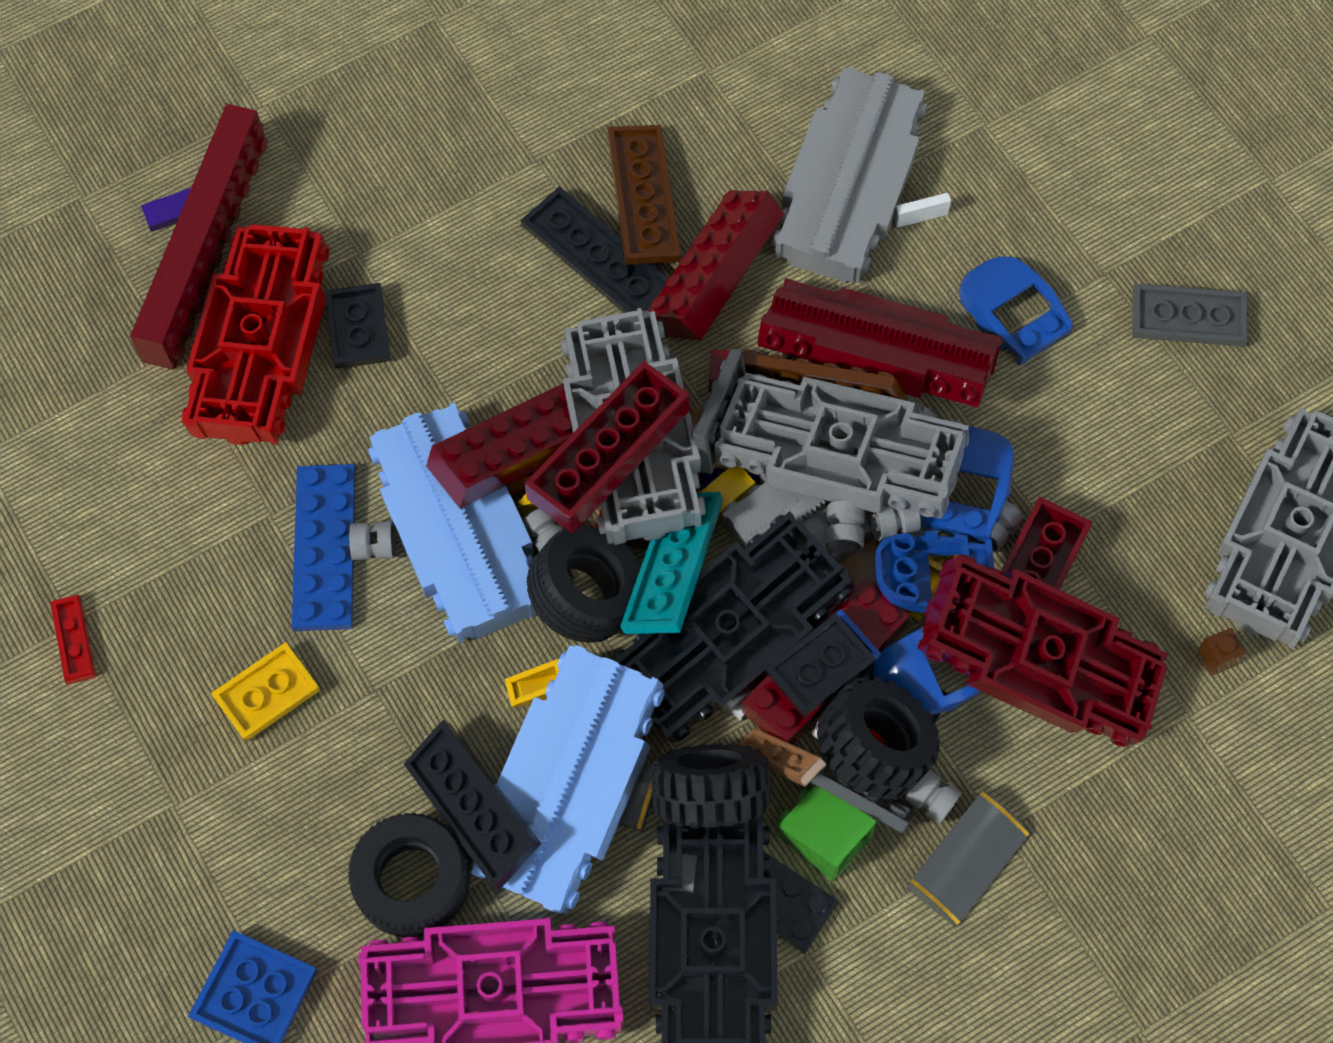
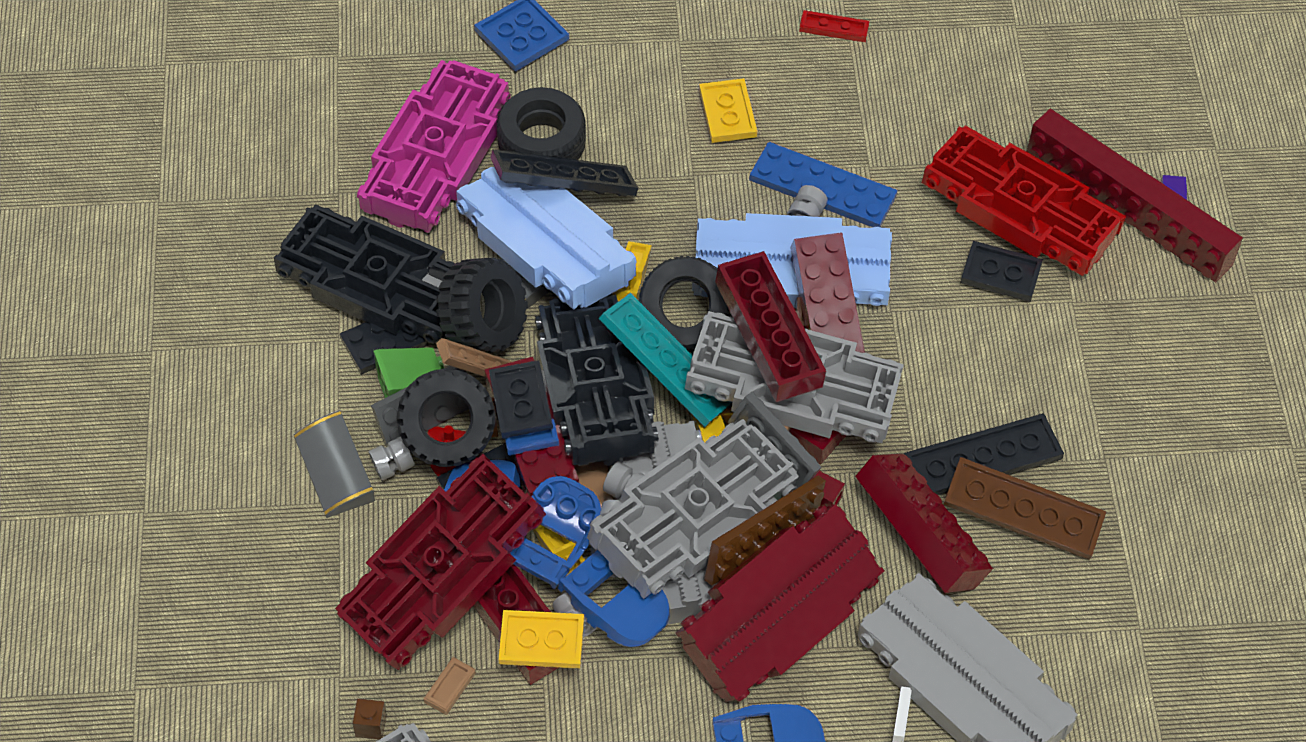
camera: 115 degrees right, 10 degrees down
(1059, 520) = (541, 639): none -> yellow plate
(1135, 606) = (449, 686): none -> medium nougat tile

